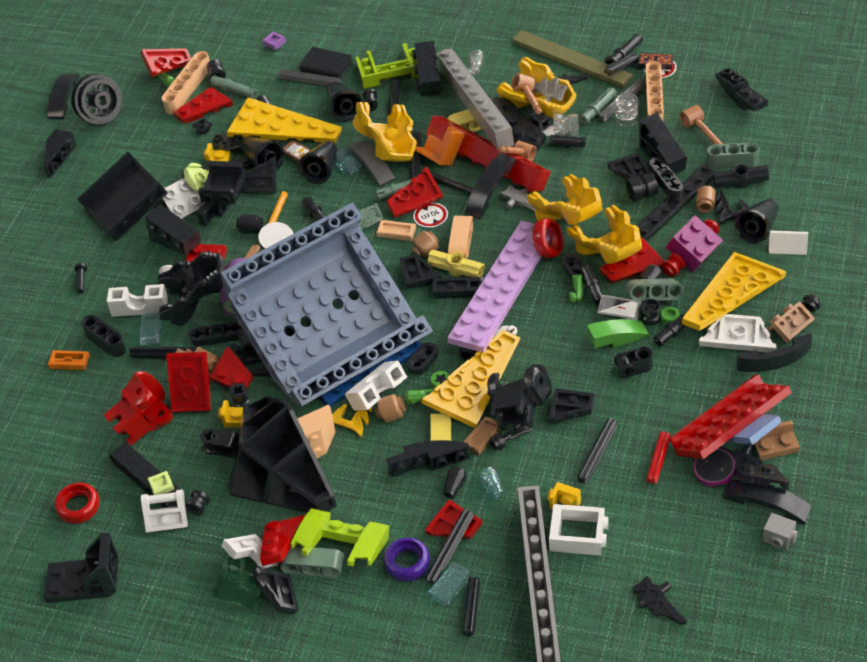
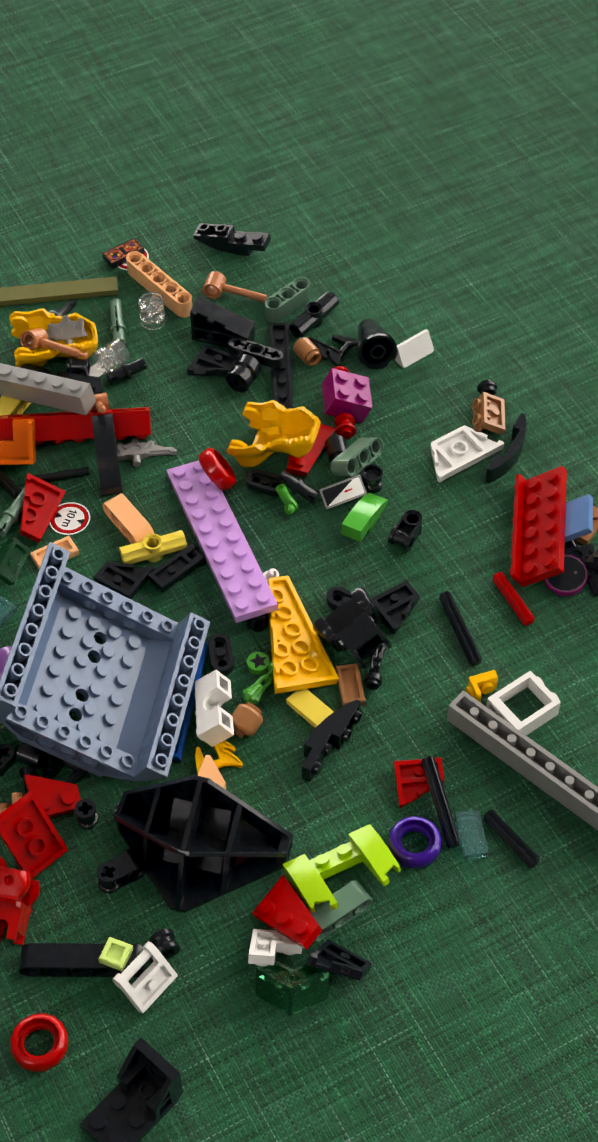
camera: 50 degrees left, 5 degrees up
(230, 415) = (101, 837): yellow bracket -> none
(424, 243) = (102, 548): medium nougat head -> none
(454, 481) = (376, 743): black cone -> none
(490, 480) = (408, 719): clear light blue cone -> none
(583, 202) = (207, 420): yellow animal -> none
(611, 108) = (132, 306): dark grey axle -> none
(621, 64) = (99, 272): black axle -> none
(622, 52) = (85, 264): black pin -> none
(668, 315) = (390, 472): bright green tile -> none
(670, 330) = (404, 483): black pin -> none
(731, 287) = (415, 412): yellow wing -> none

